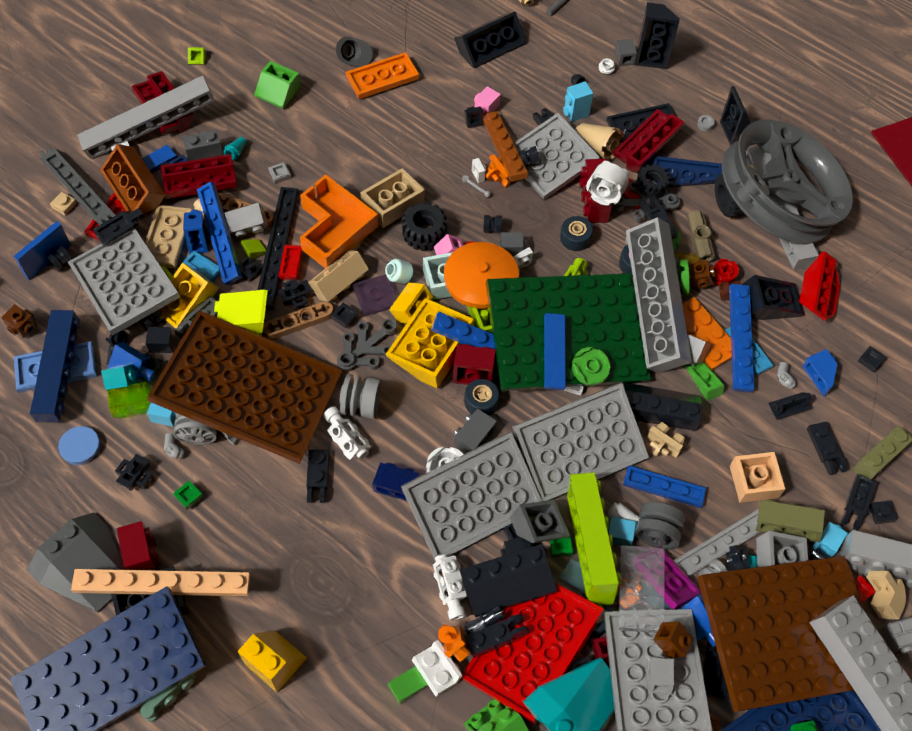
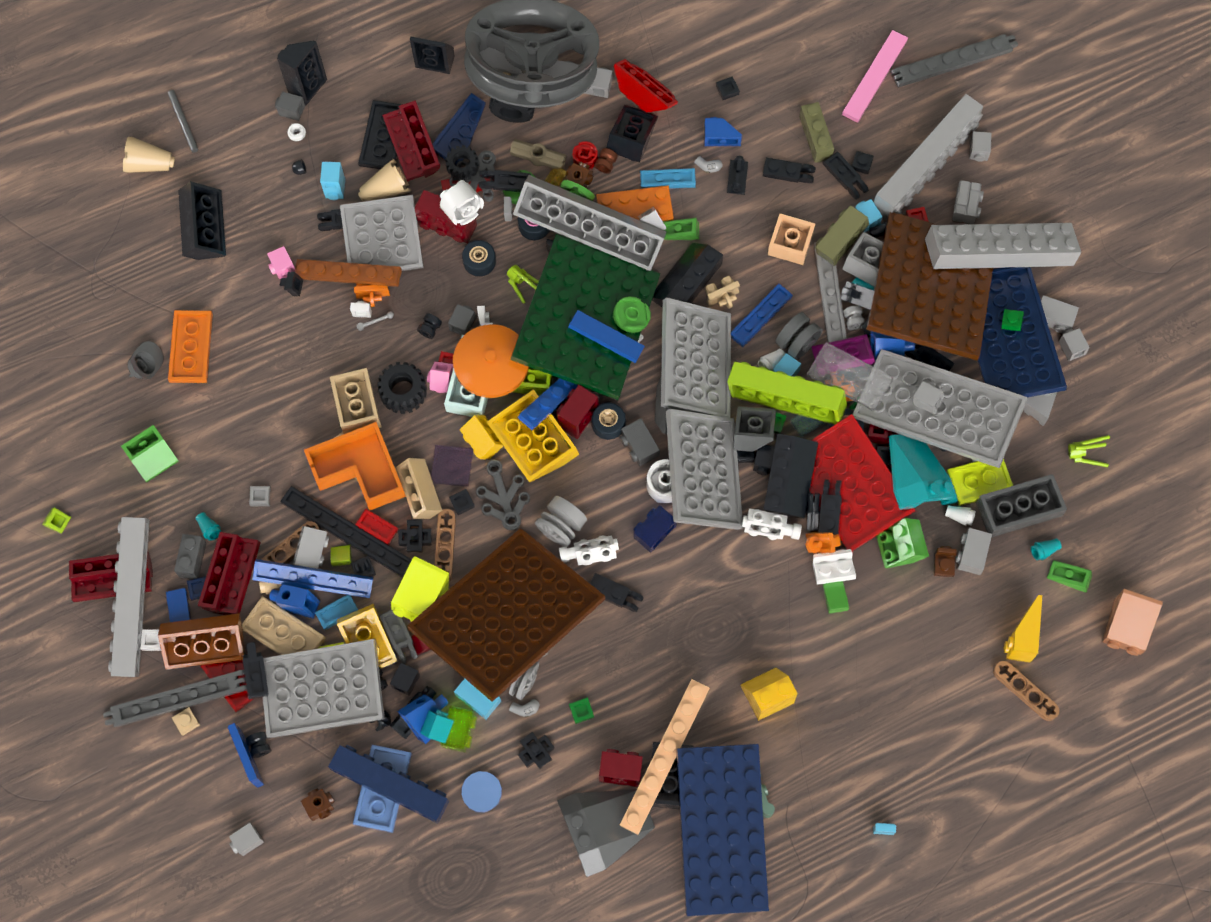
camera: 60 degrees left, 10 degrees up
(399, 271) = (441, 432): light aqua head -> none
(533, 156) = (376, 255): black wheel -> none
(673, 639) = (905, 373): reddish brown brick -> none
(705, 123) = (412, 81): light grey tile -> none
(741, 338) = (658, 178): blue plate -> none
(889, 595) = (933, 199): tan brick -> none

